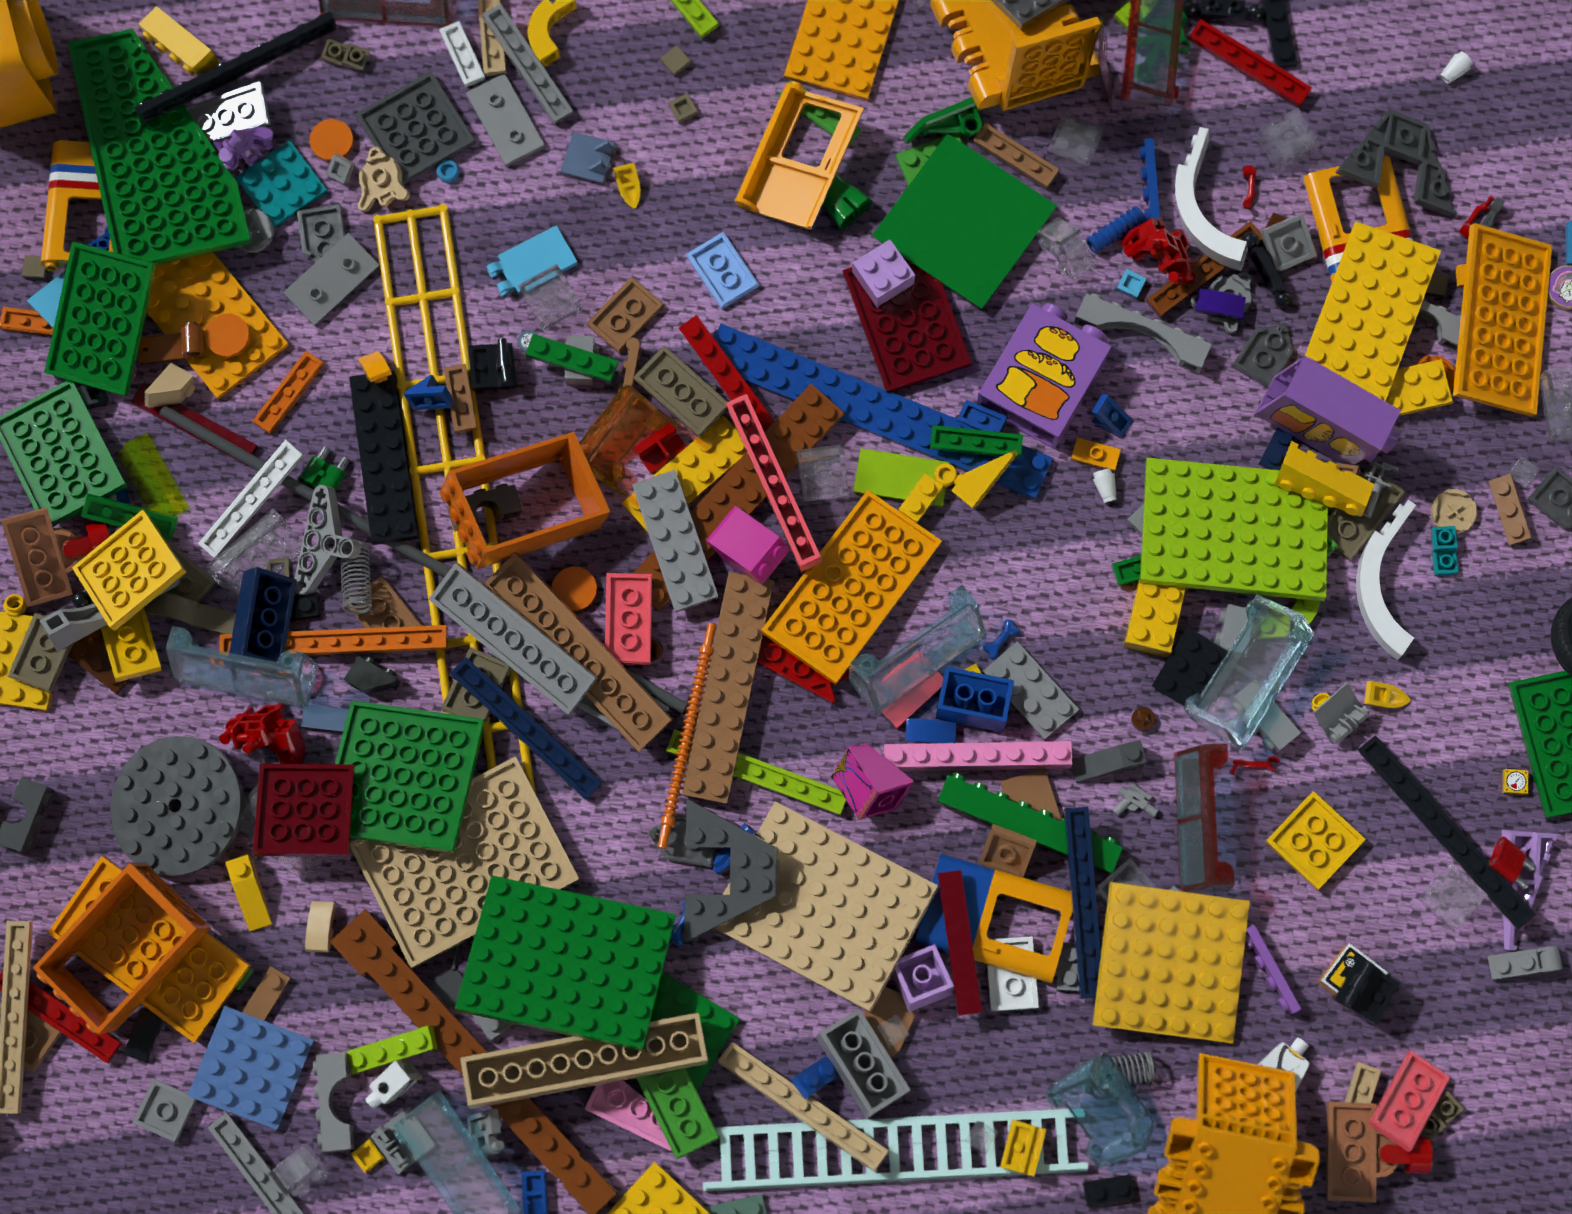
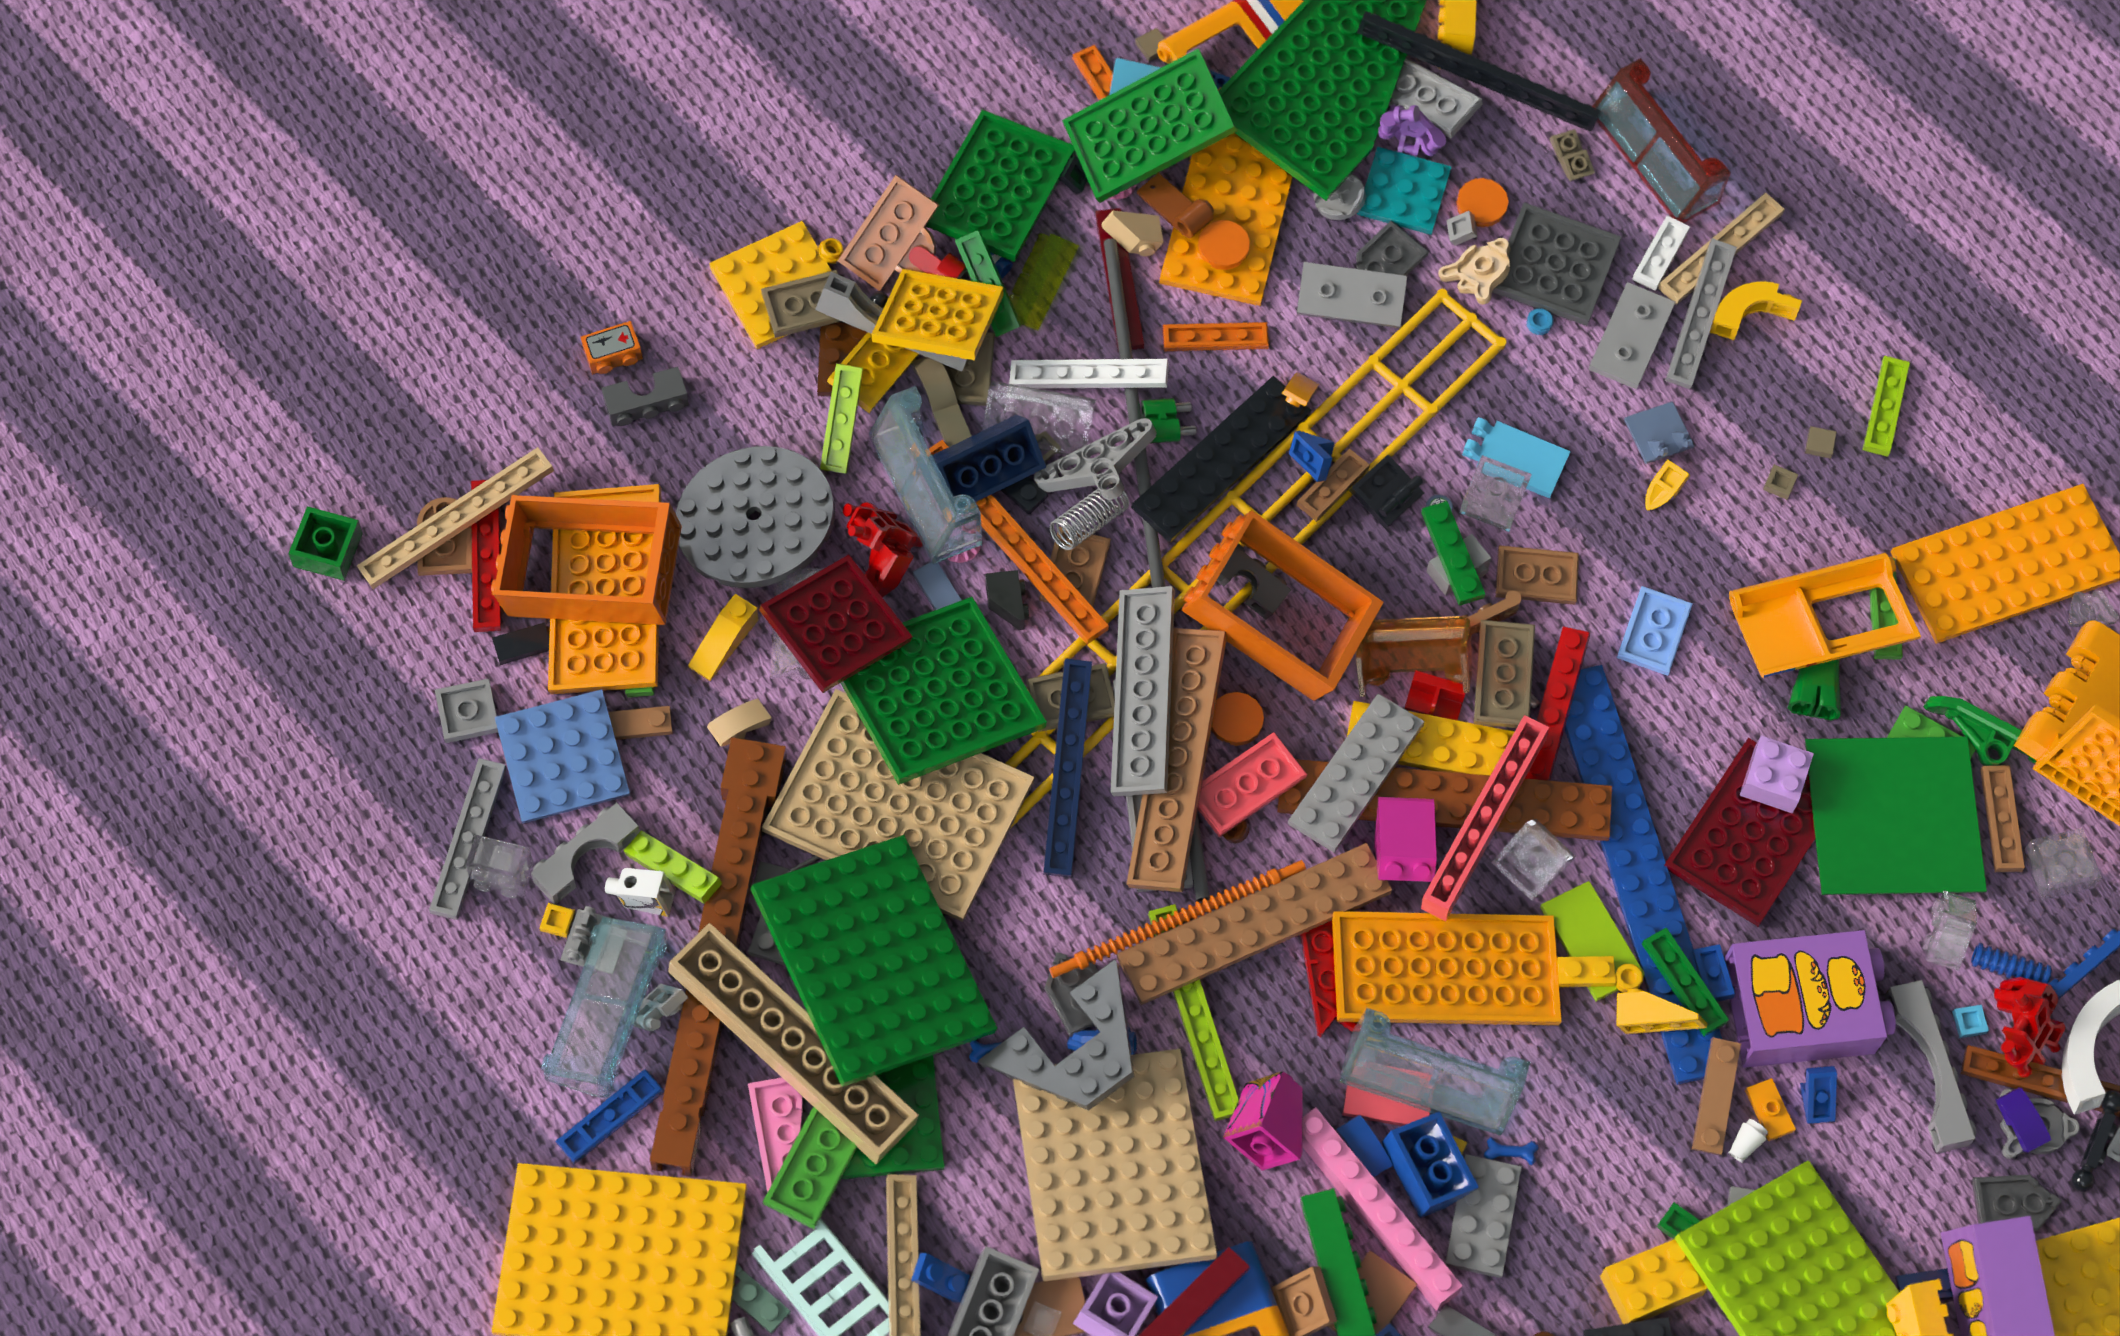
camera: 45 degrees right, 10 degrees down
(151, 692) = (841, 418): none -> lime plate
(1063, 481) = (1716, 1096): none -> medium nougat plate

